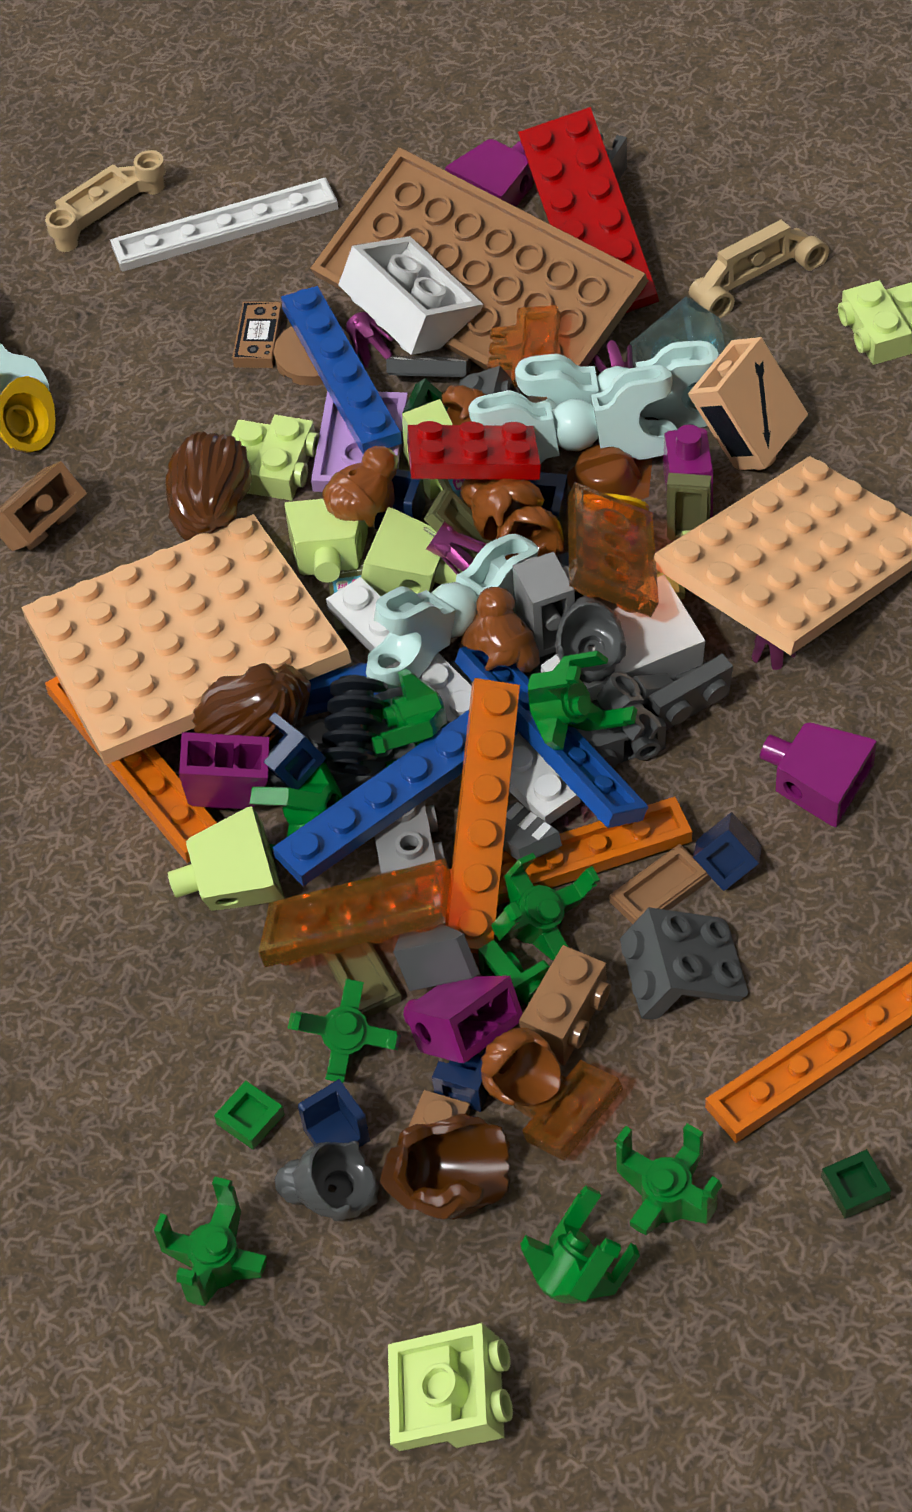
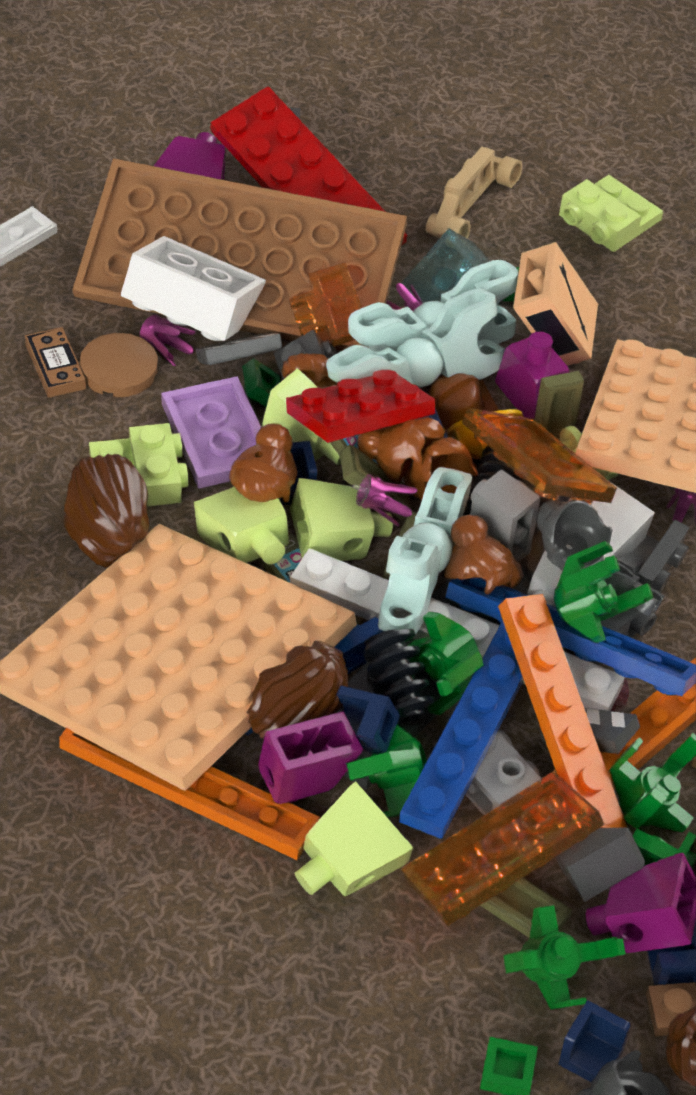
camera: 35 degrees left, 5 degrees down
(340, 370) = (166, 371): blue plate -> none

